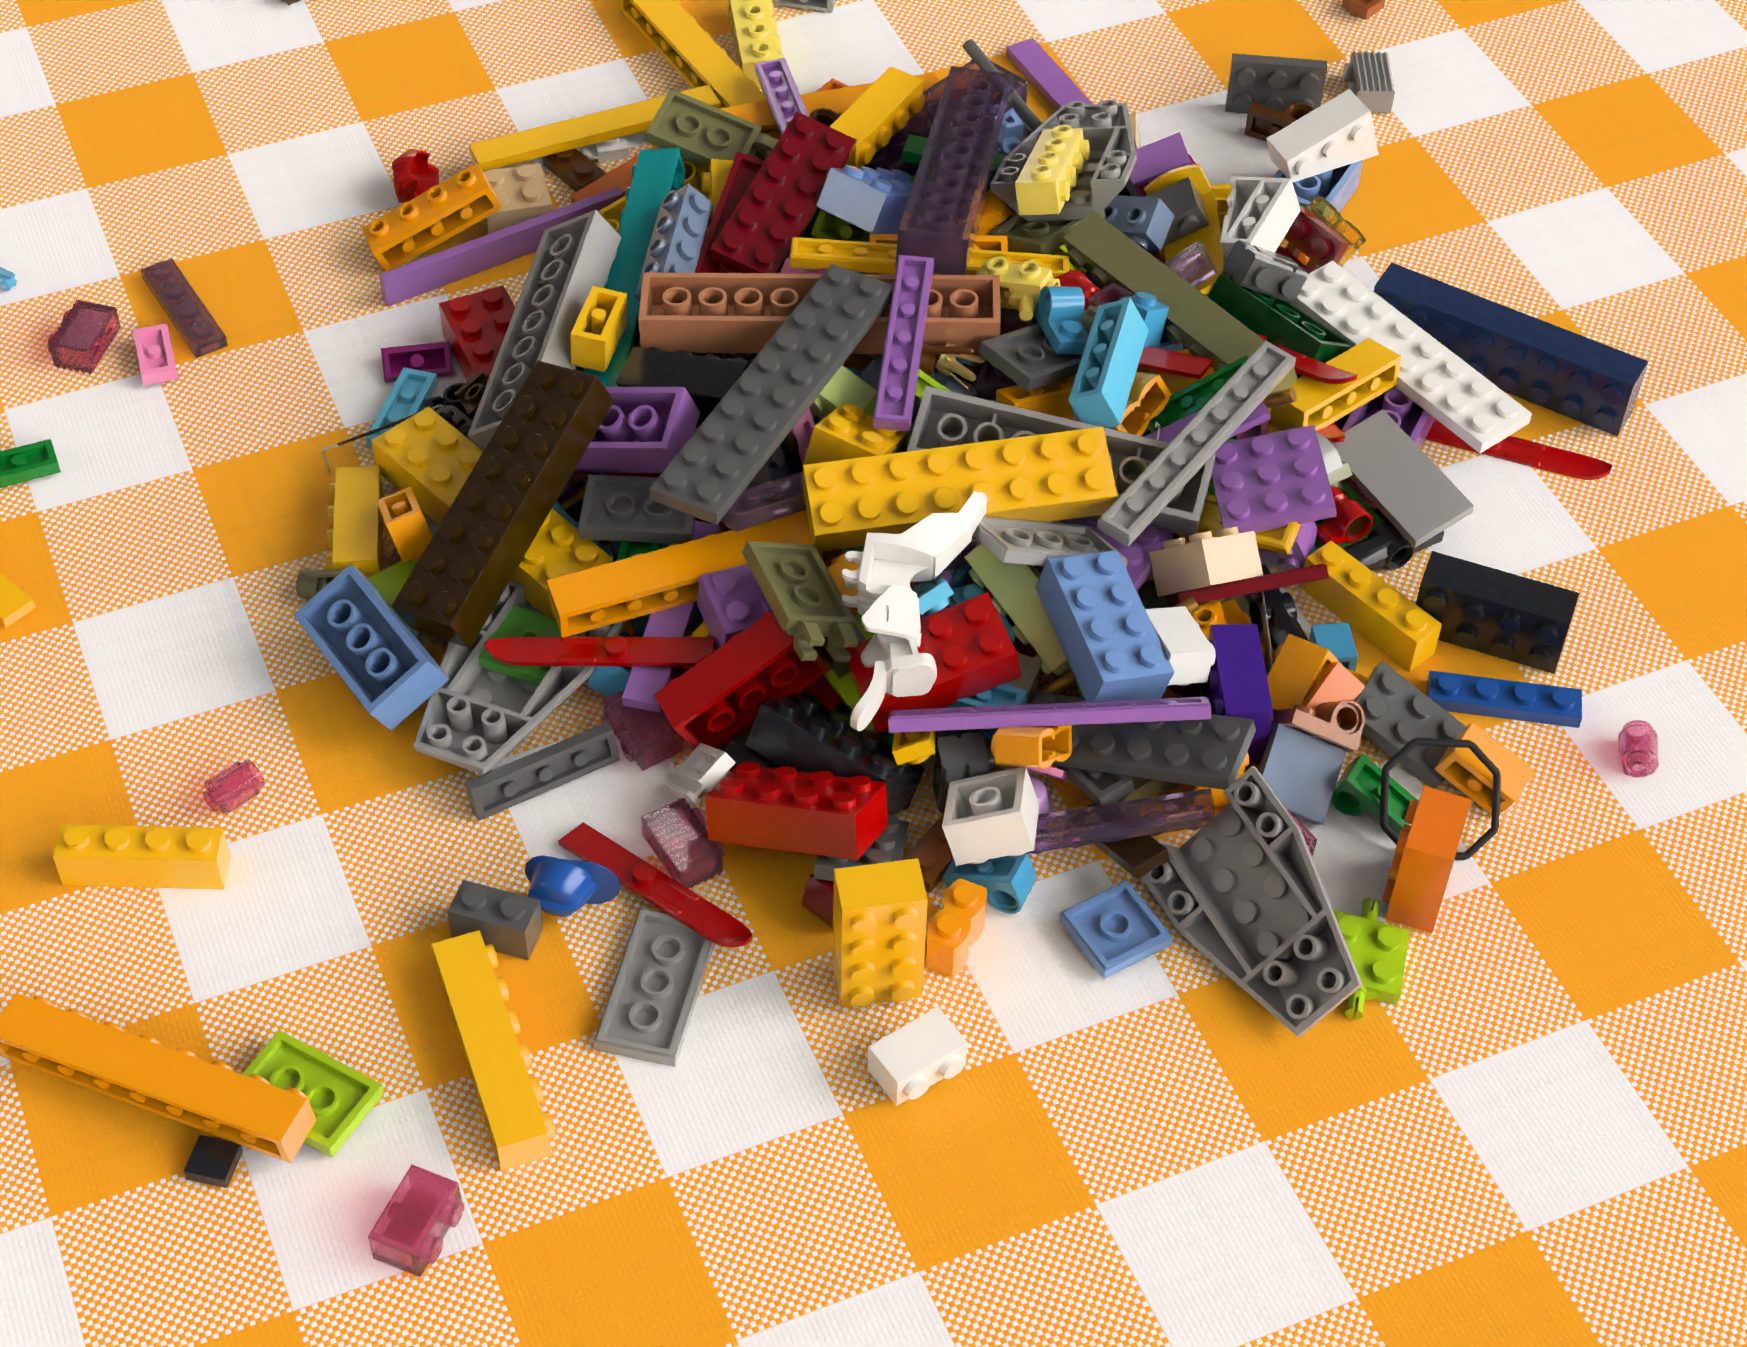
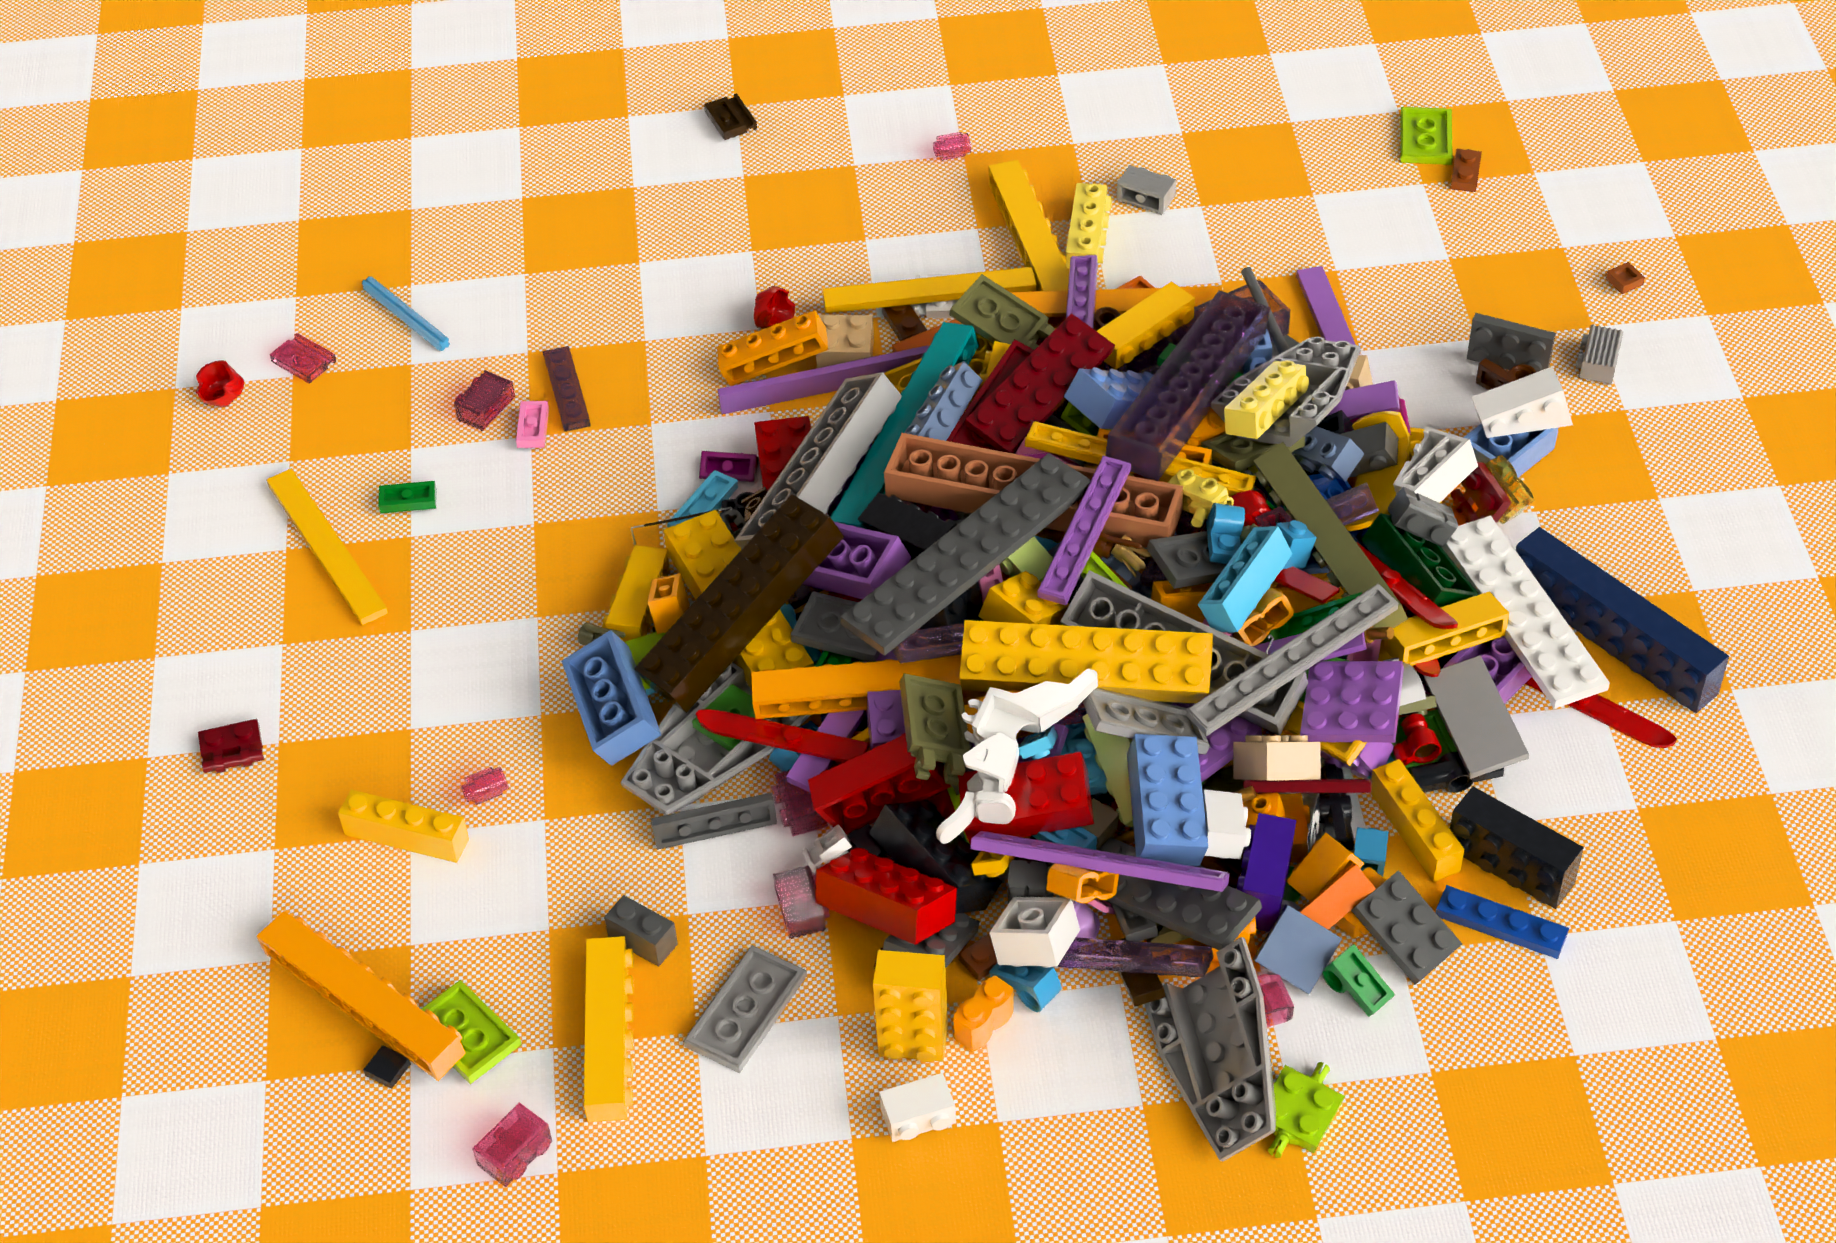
camera: 20 degrees right, 0 degrees up
(569, 884) = (699, 915): blue piece -> none
(598, 329) = (856, 472): yellow brick -> none
(657, 887) = (769, 930): red piece -> none
(1115, 929) = (1109, 1042): medium blue plate -> none
(1323, 722) = (1326, 915): plate -> none
(1425, 858) = (1370, 1041): orange brick -> none
(1443, 743) = (1419, 950): black piece -> none
(1474, 779) = (1455, 978): light orange brick -> none
(1638, 749) = (1596, 988): clear pink brick -> none

